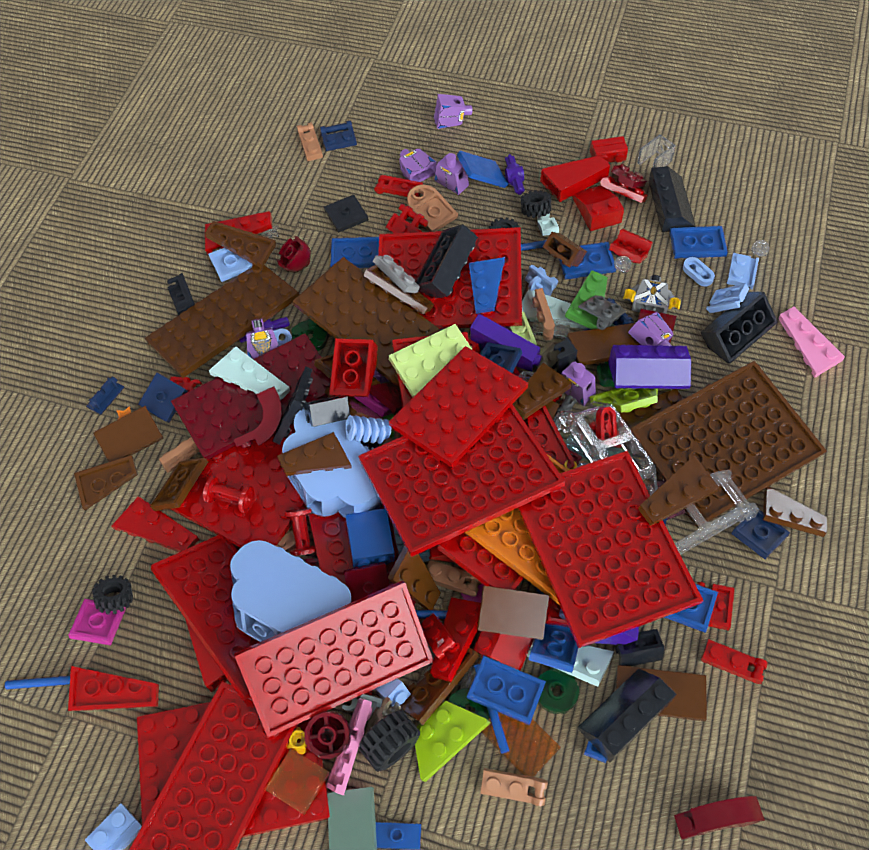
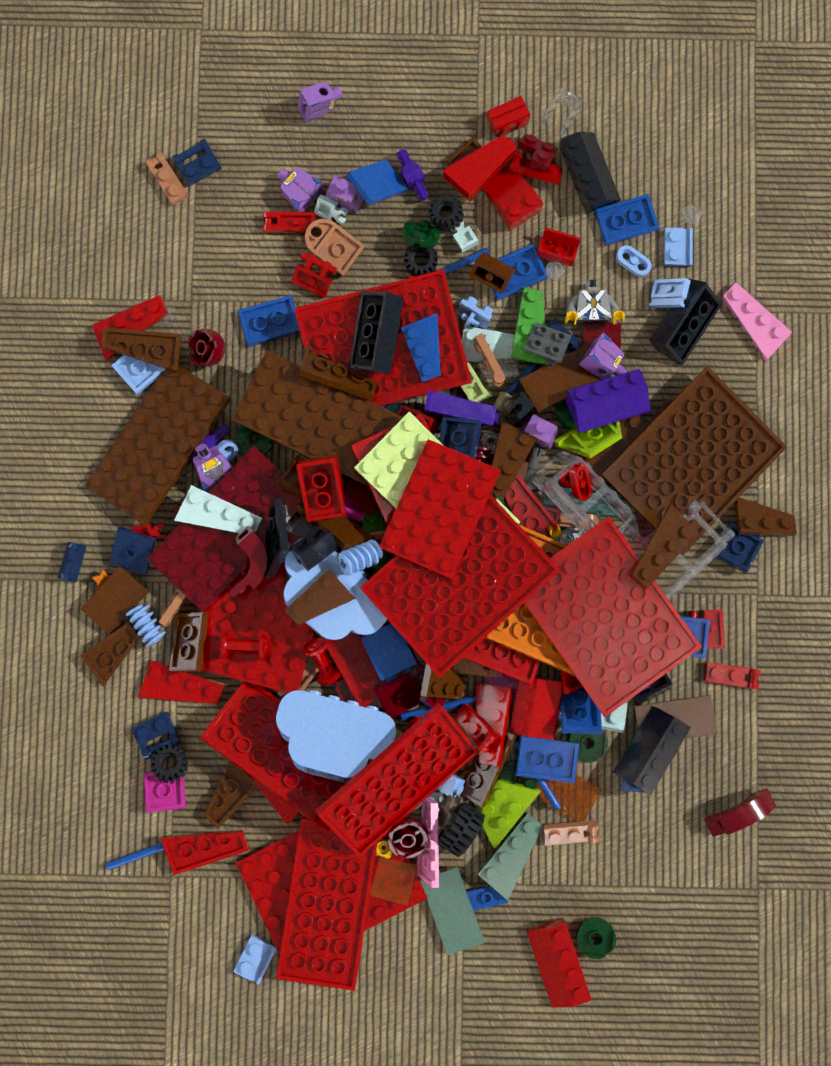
camera: 20 degrees left, 25 degrees up
(113, 561) = (153, 729): none -> dark blue plate
(146, 461) = (145, 625): none -> light blue piece
(163, 642) = (231, 793): none -> reddish brown wing
(180, 293) = (101, 423): black hinge -> none
(346, 213) = (241, 271): black plate -> none
(396, 274) = (329, 359): light grey plate -> none
(435, 796) = (509, 859): none -> sand green wing
(436, 181) = (328, 209): none -> light aqua plate
(509, 212) = (421, 233): none -> dark green plate
(513, 612) = (539, 696): tile -> none

